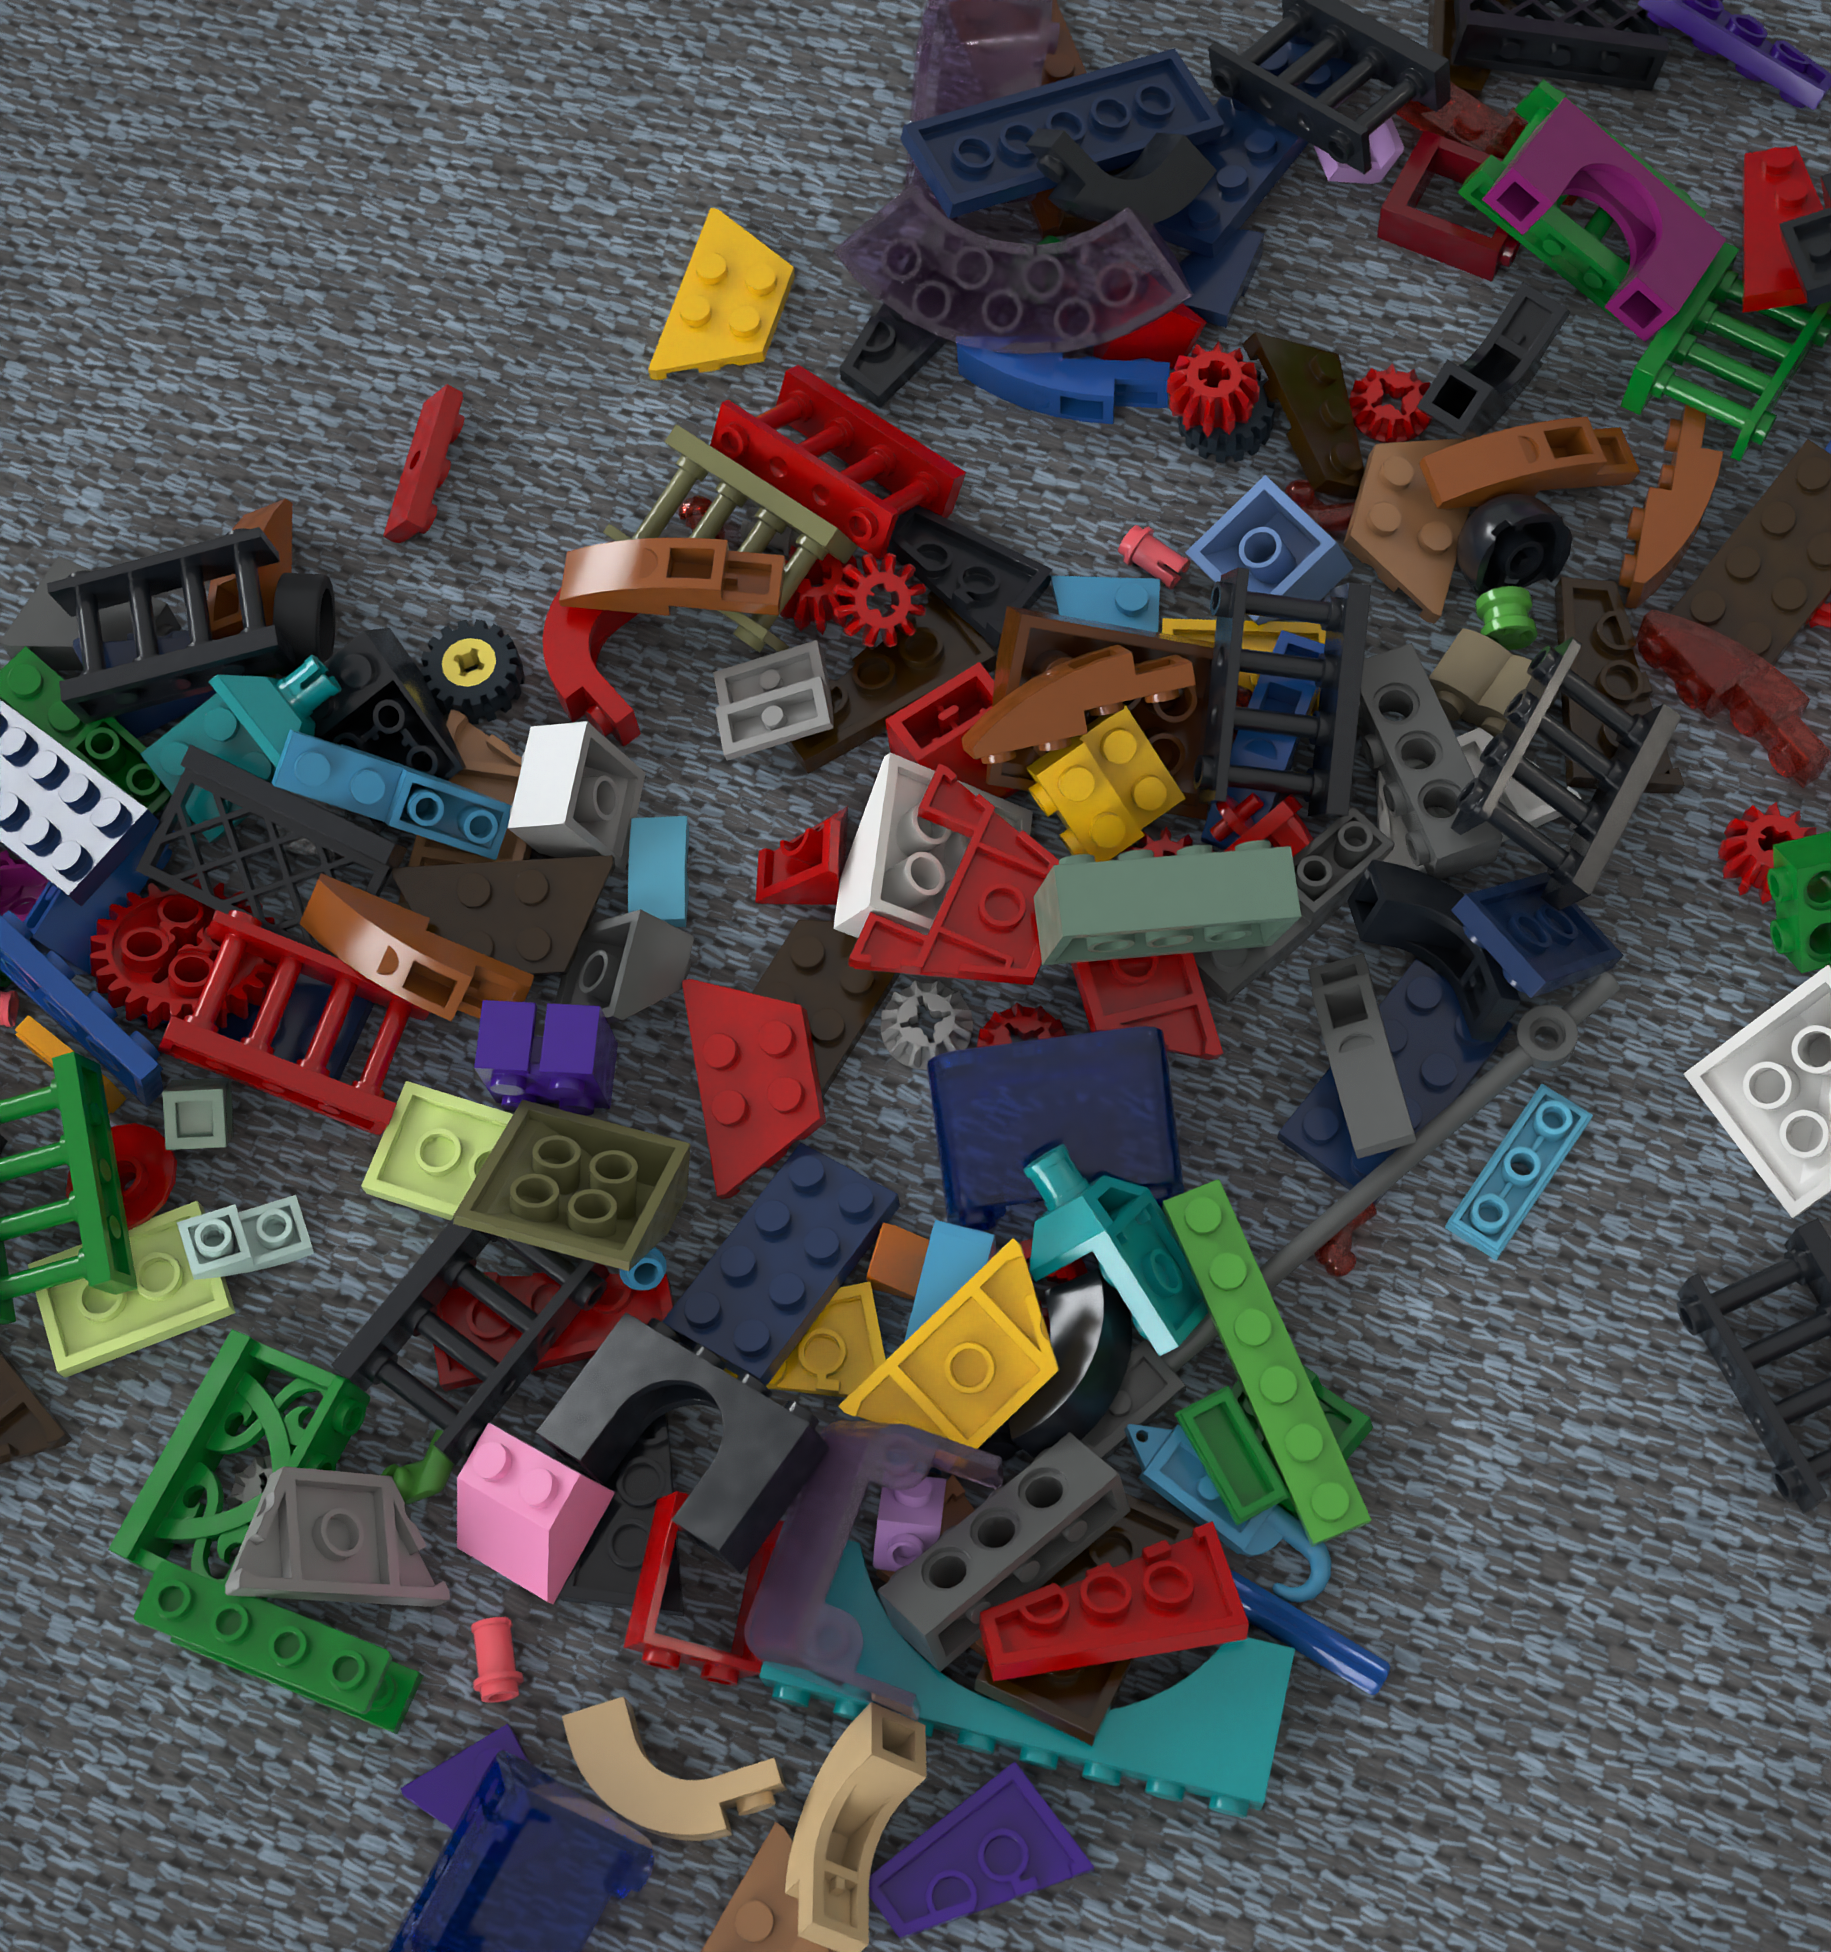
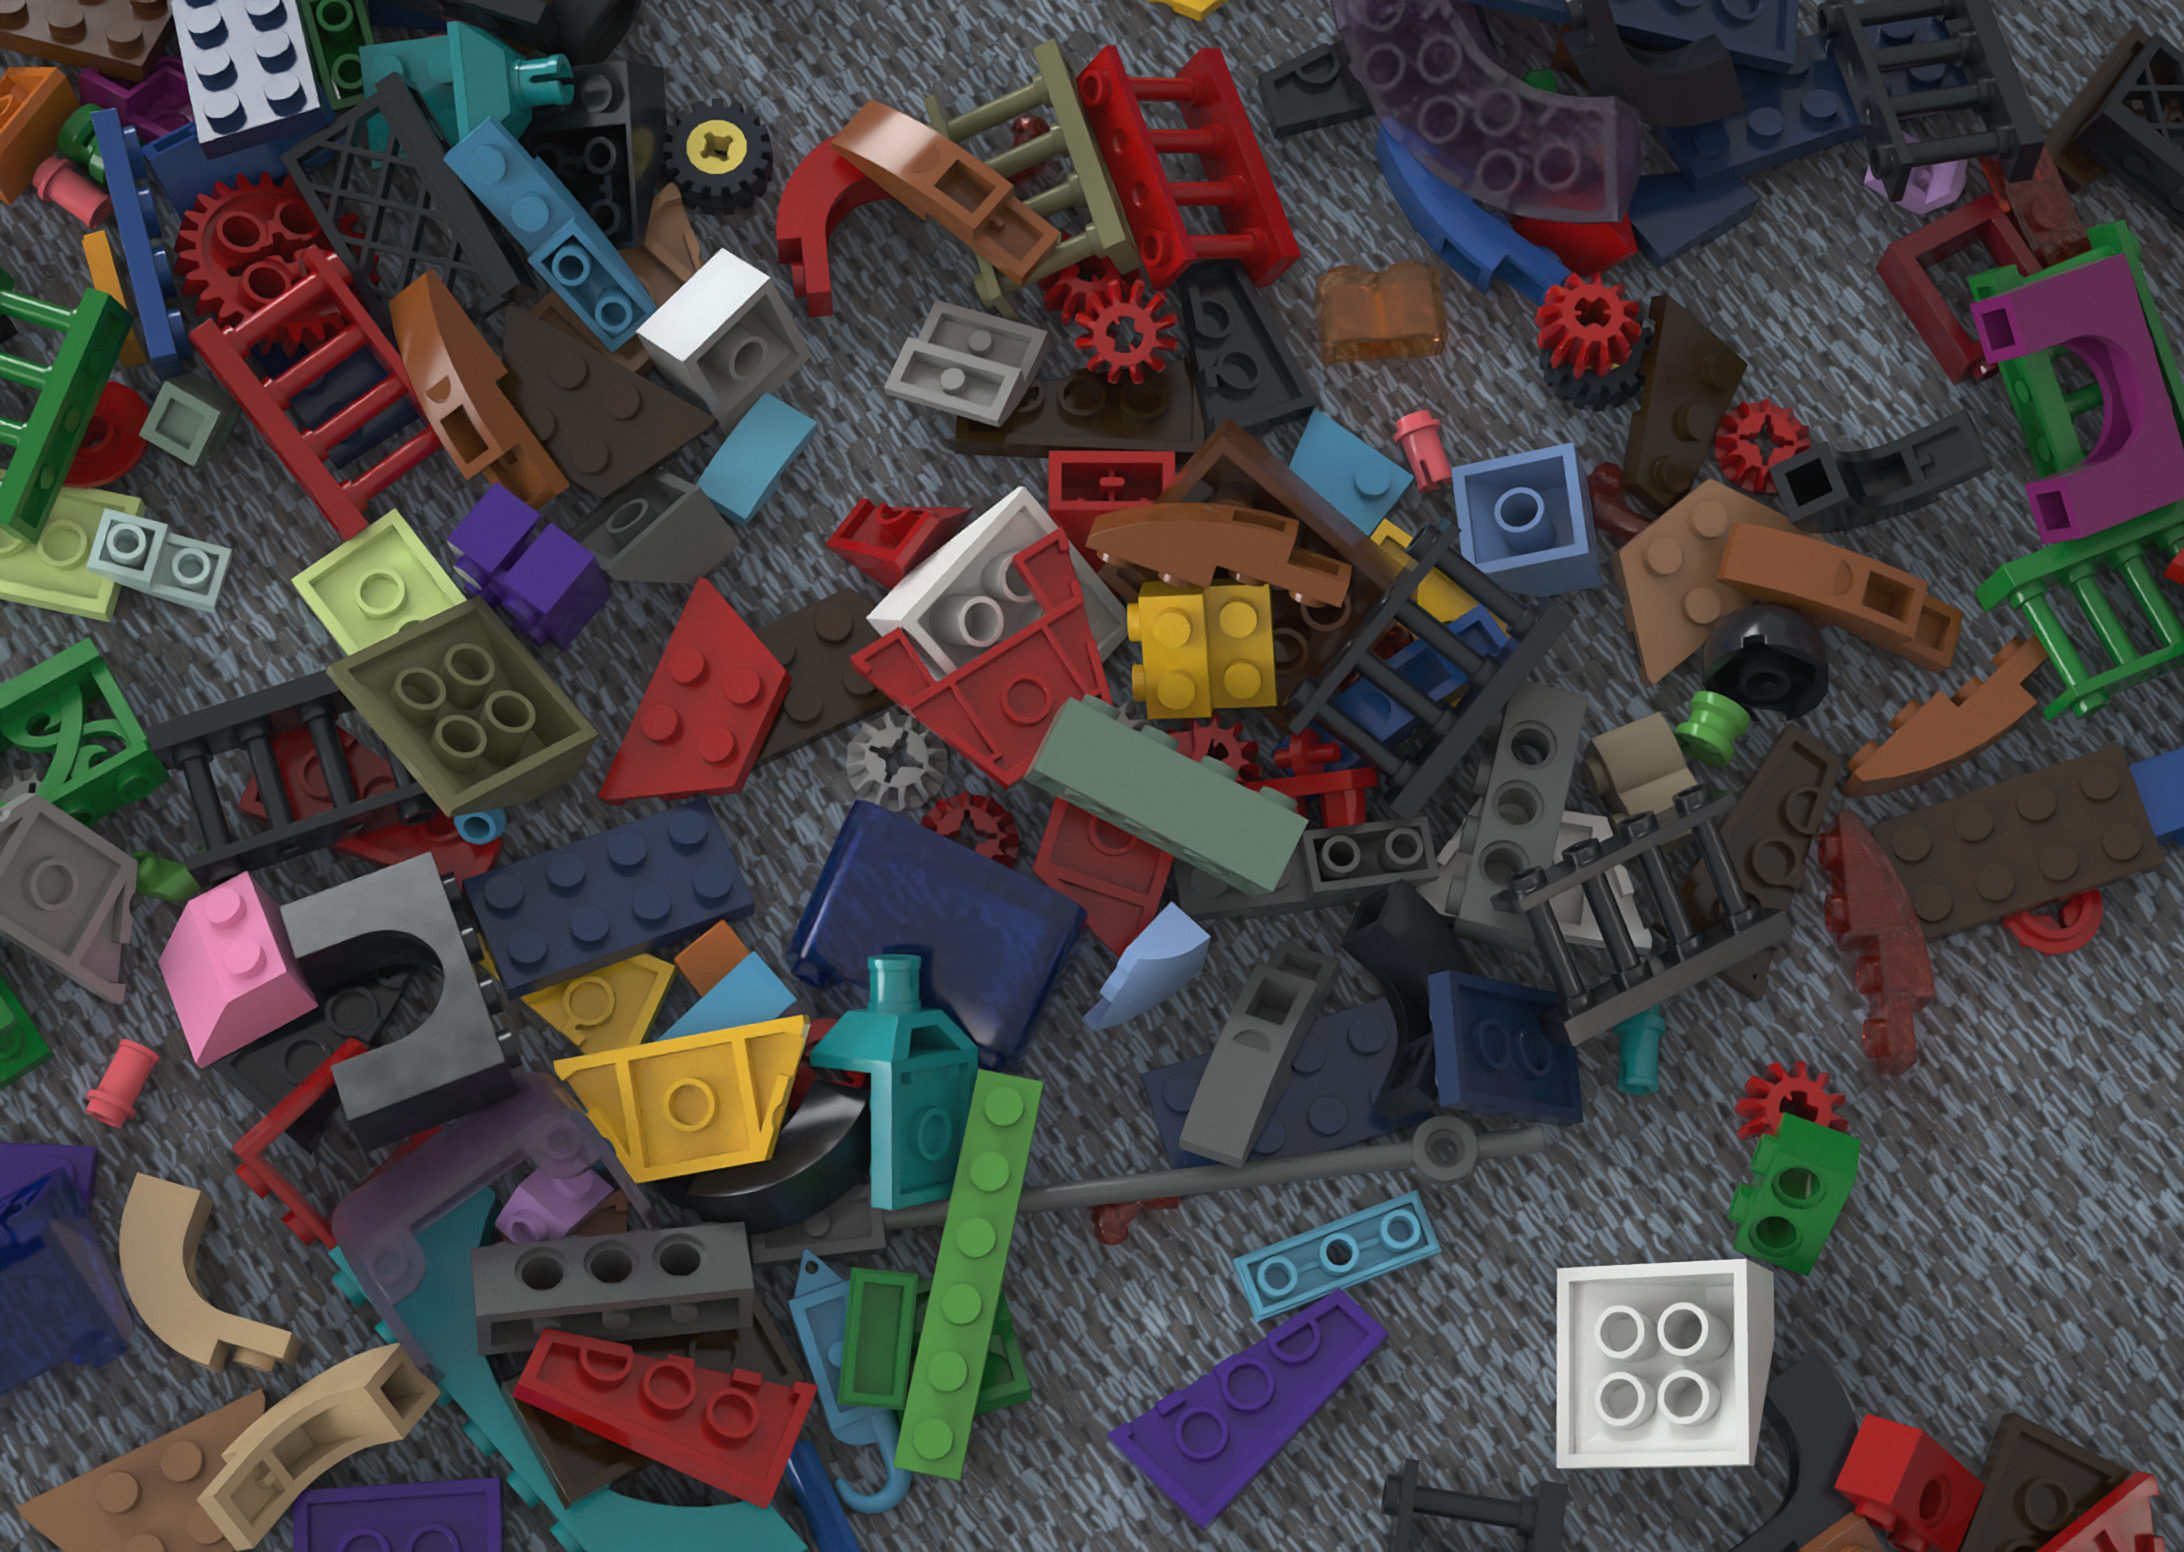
camera: 20 degrees right, 5 degrees up
(1050, 480) = (1380, 313): none -> clear orange brick
(1235, 1046) = (1151, 969): none -> light blue slope
(1535, 1342) = (1233, 1422): none -> dark purple wing
(1628, 879) = (1639, 1051): none -> teal pin

